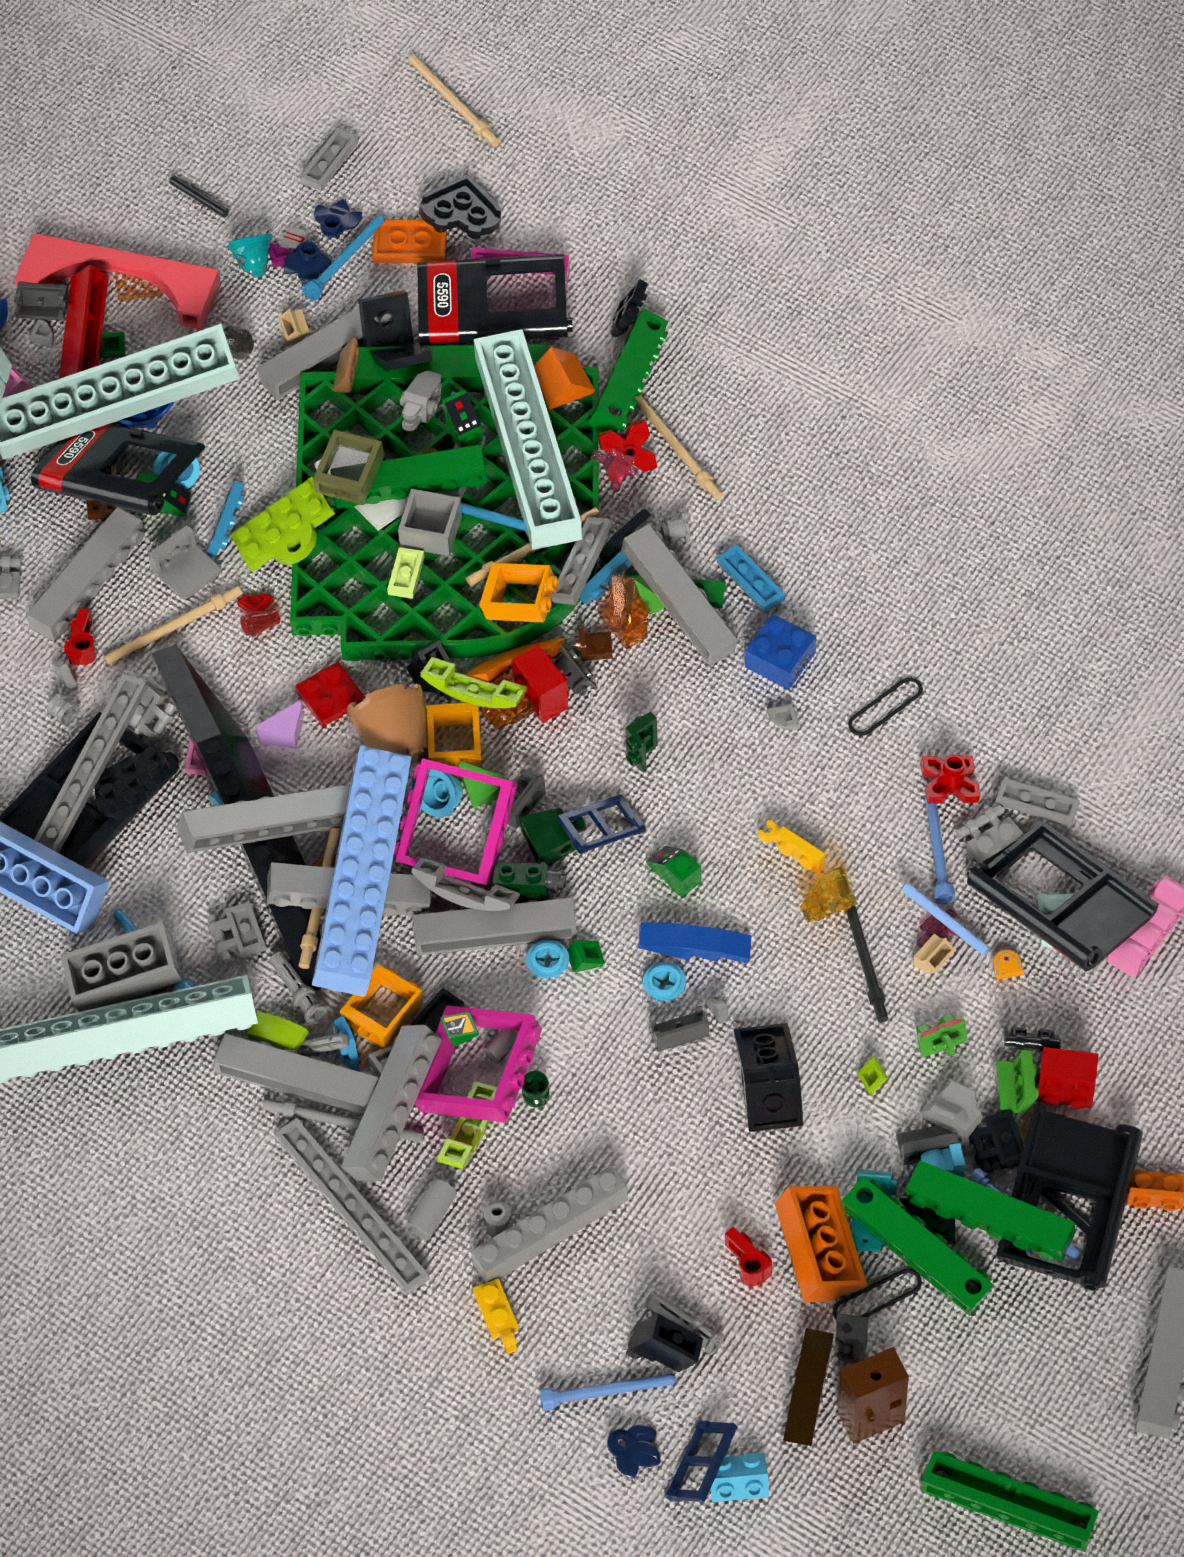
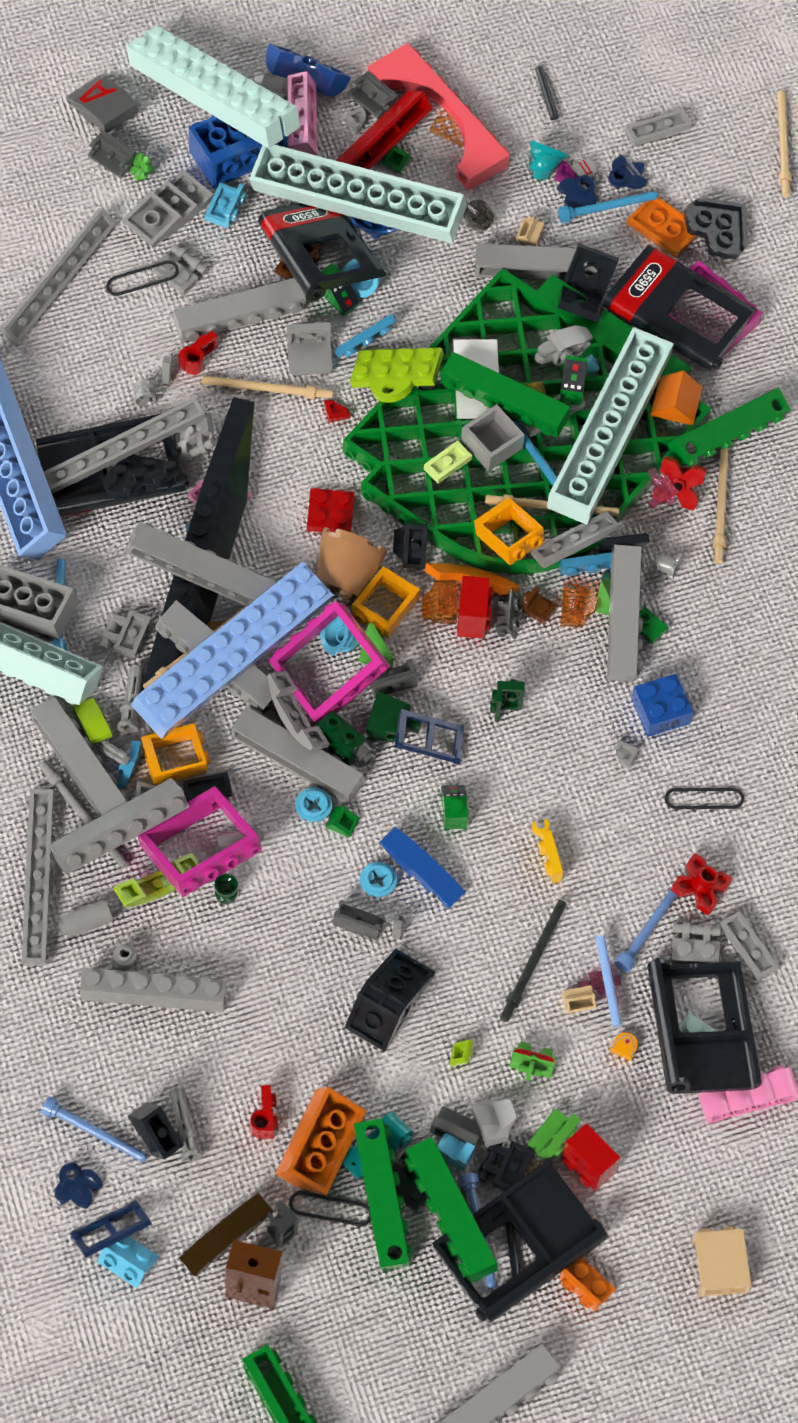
camera: 30 degrees right, 5 degrees up
(259, 621) = (325, 425): clear red cone -> none
(282, 728) = (278, 512): lavender slope -> none
(346, 367) = (535, 287): medium nougat slope -> none
(348, 466) = (464, 358): olive window -> none
(459, 1027) = (205, 808): slope -> none
(469, 689) = (420, 575): lime slope -> none
(497, 1313) = (69, 1023): yellow plate -> none
(620, 600) = (576, 590): clear orange slope -> none
(627, 310) = (770, 381): black plate -> none
(750, 578) = (688, 637): dark azure plate -> none
(828, 894) = (541, 902): clear yellow slope -> none
(1020, 1039) = (596, 1117): black plate -> none

